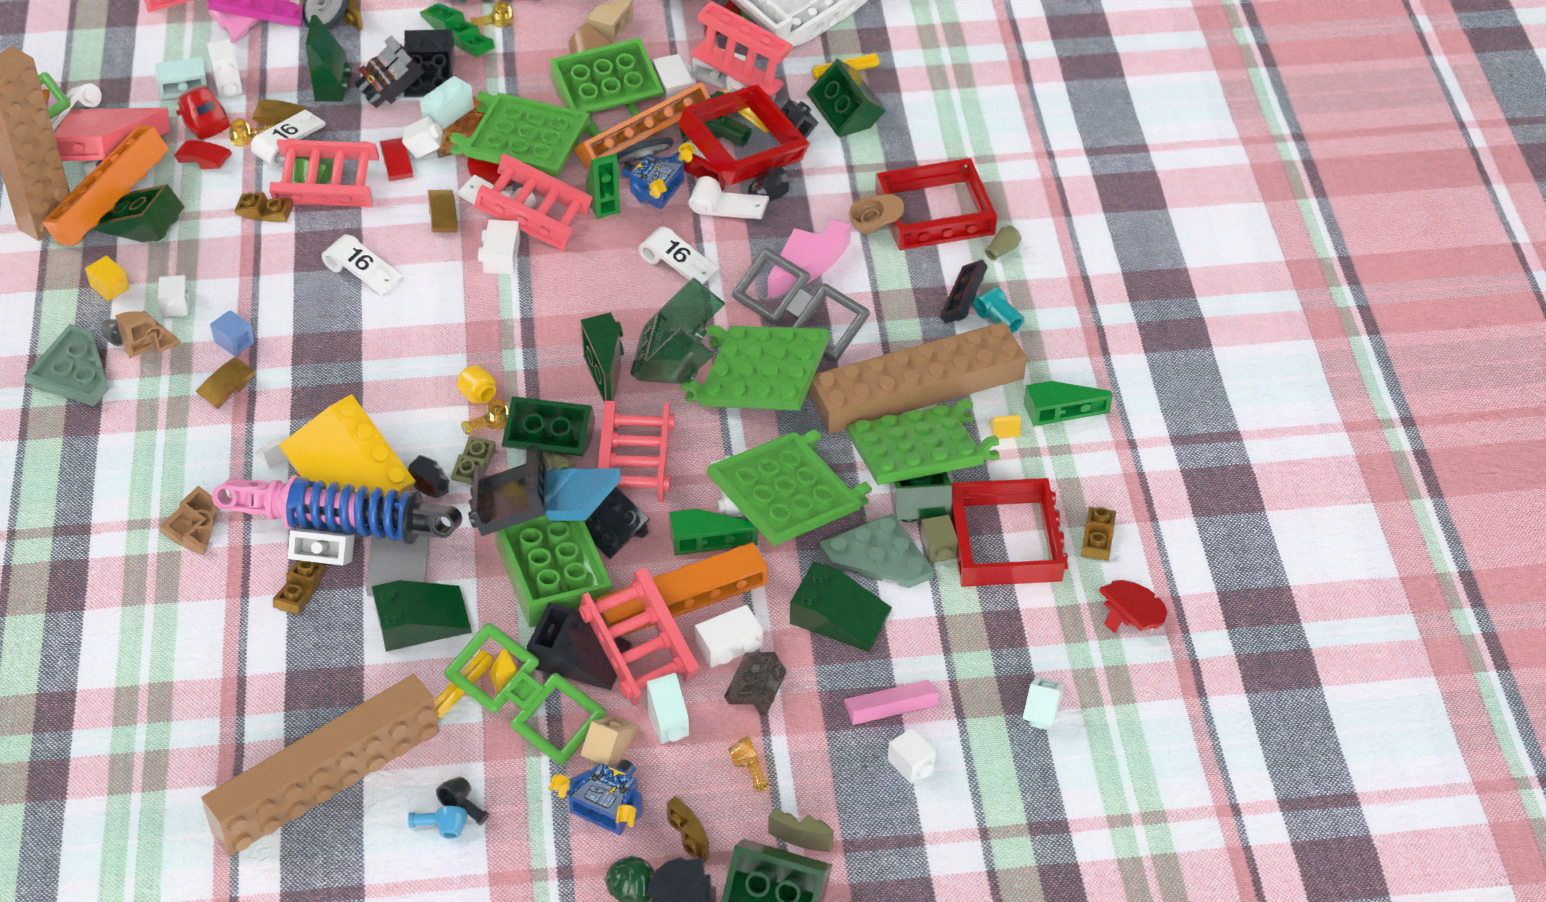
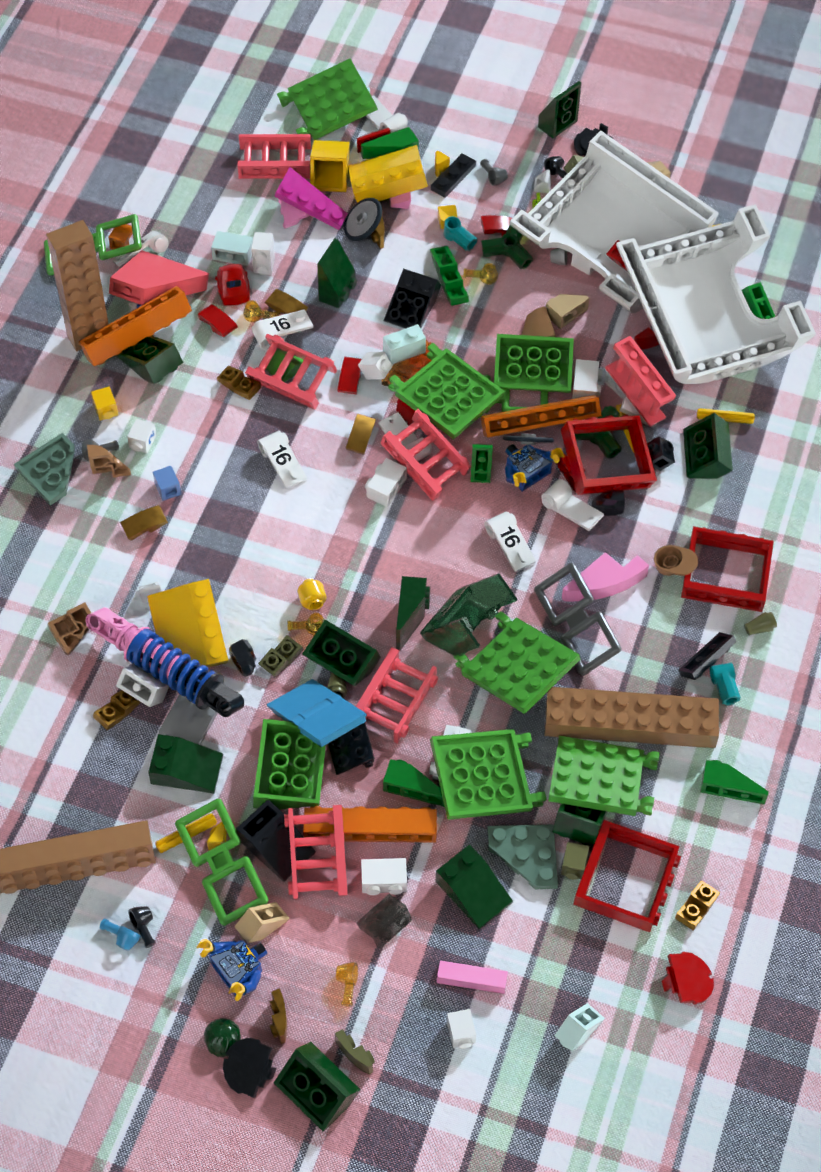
camera: 25 degrees right, 10 degrees up
(388, 73) = (377, 300): black hips -> none
(509, 495) = (283, 699): black panel -> none
(667, 709) = (309, 918): light aqua slope -> none
(1005, 426) = (677, 784): yellow slope -> none

